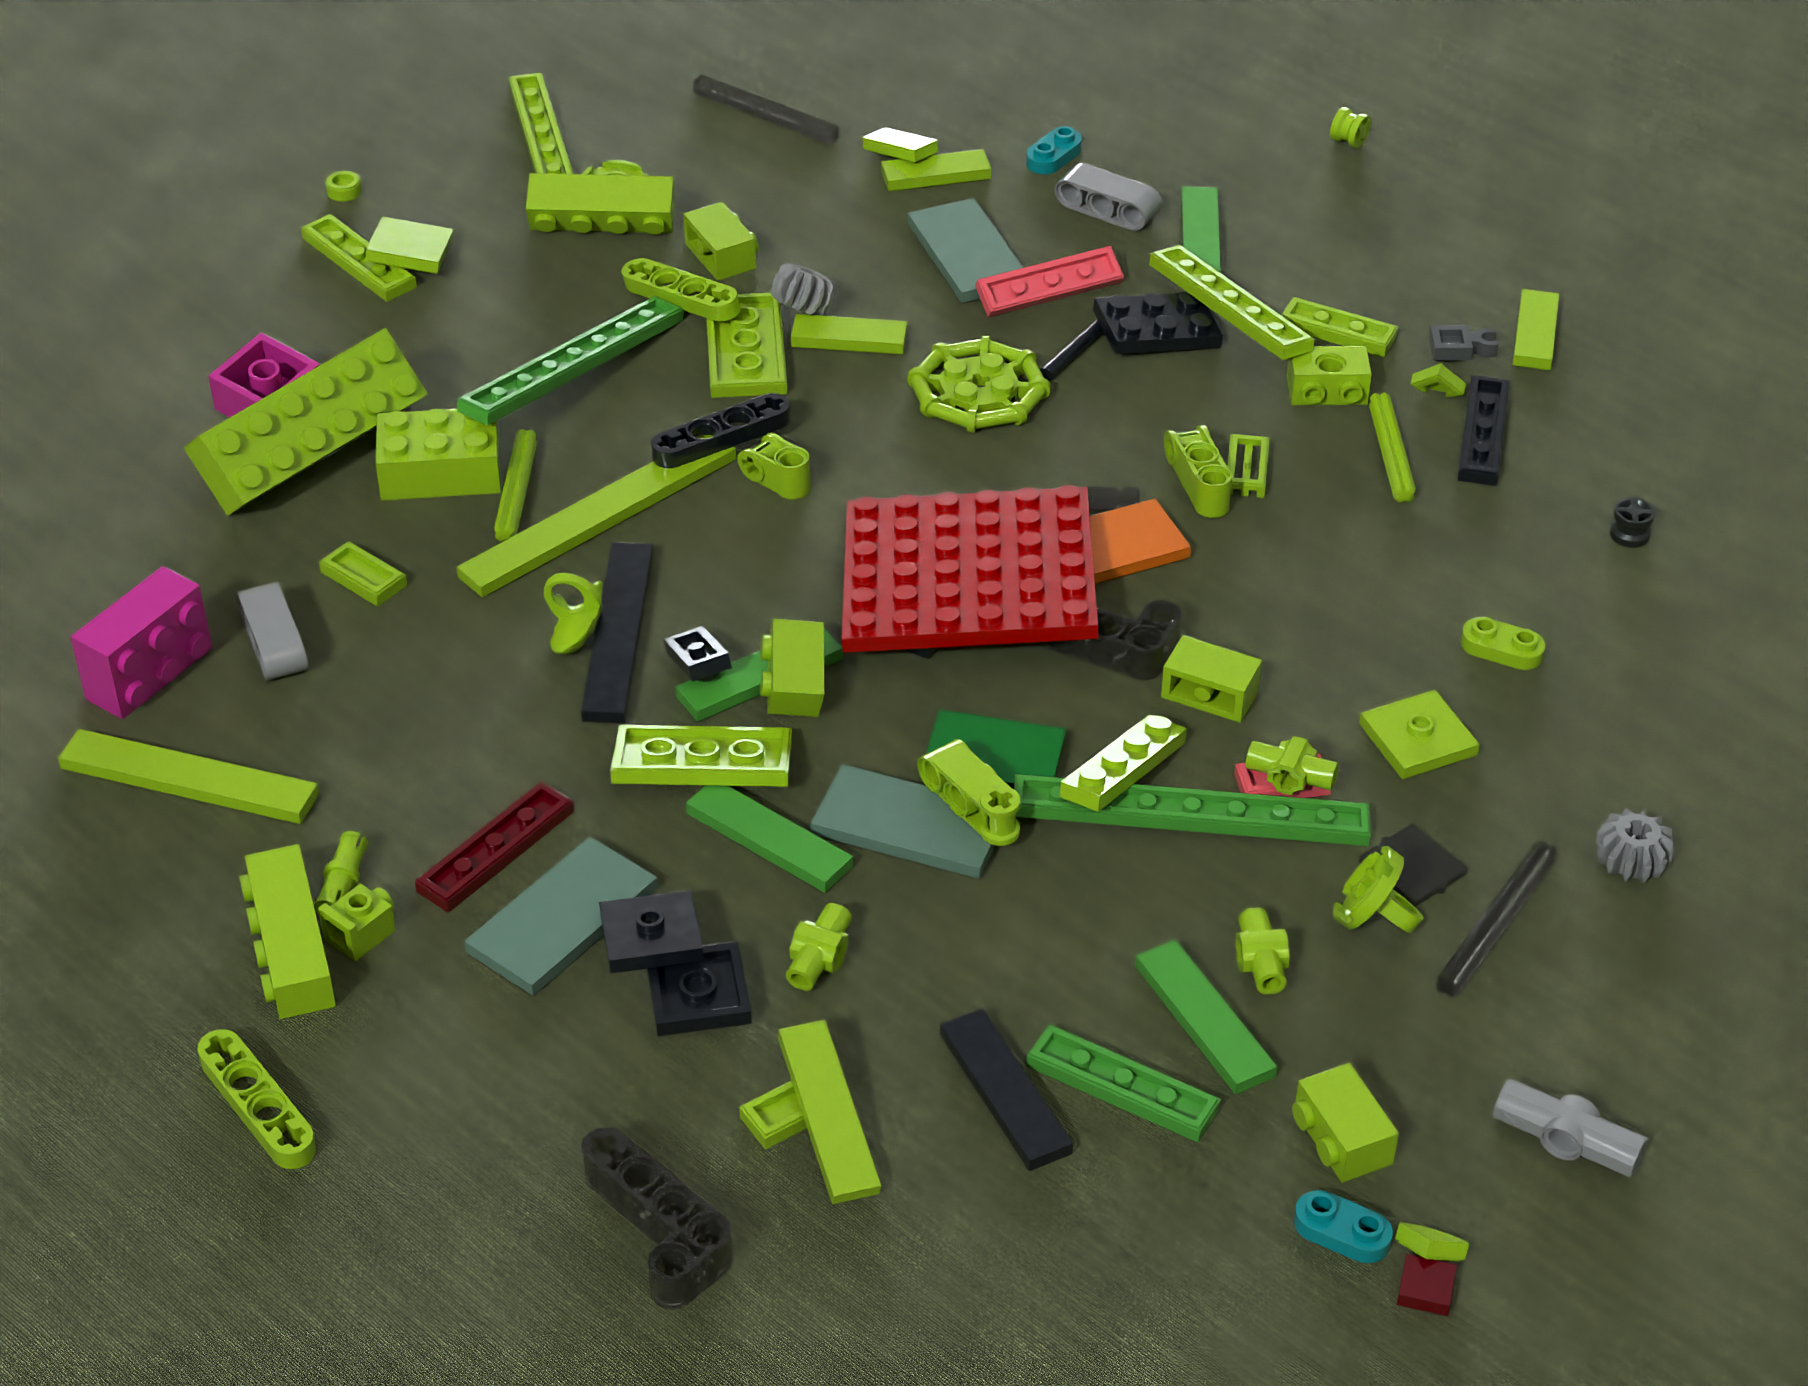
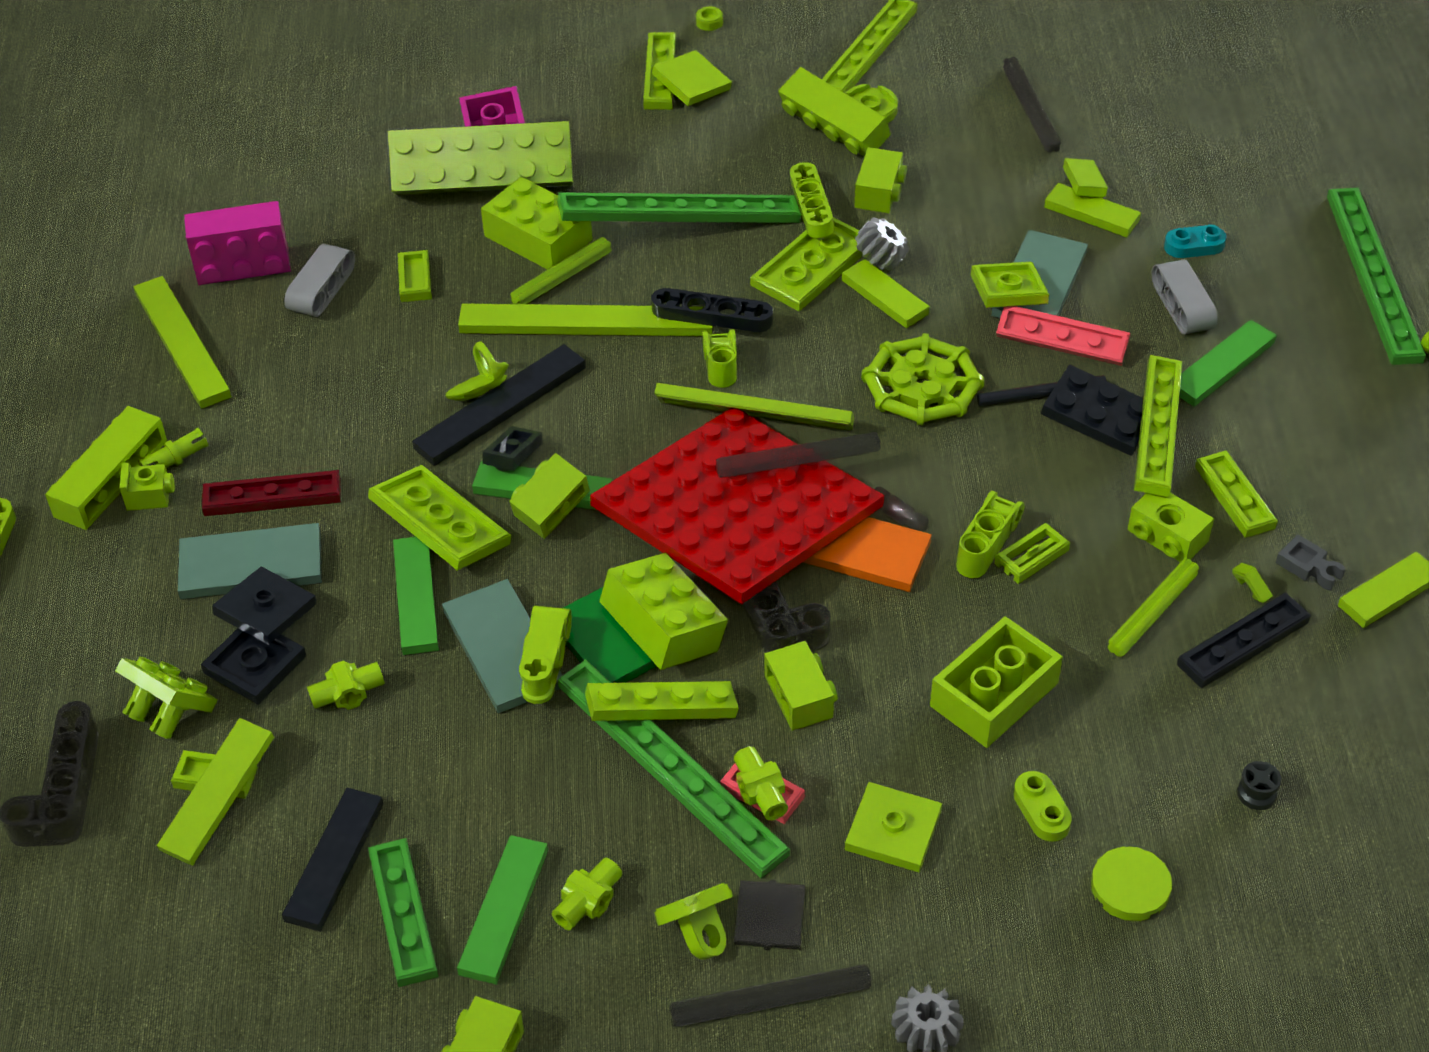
camera: 45 degrees right, 5 degrees up
(682, 1056) = (167, 685): none -> lime plate
(873, 486) = (755, 406): none -> lime tile
(962, 261) = (1009, 284): none -> lime plate
(979, 495) = (797, 454): none -> clear smoke axle
(1029, 690) = (663, 610): none -> lime brick
(1227, 102) = (1376, 277): none -> bright green tile
(1364, 570) = (995, 681): none -> lime brick
(1634, 652) = (1131, 883): none -> lime tile

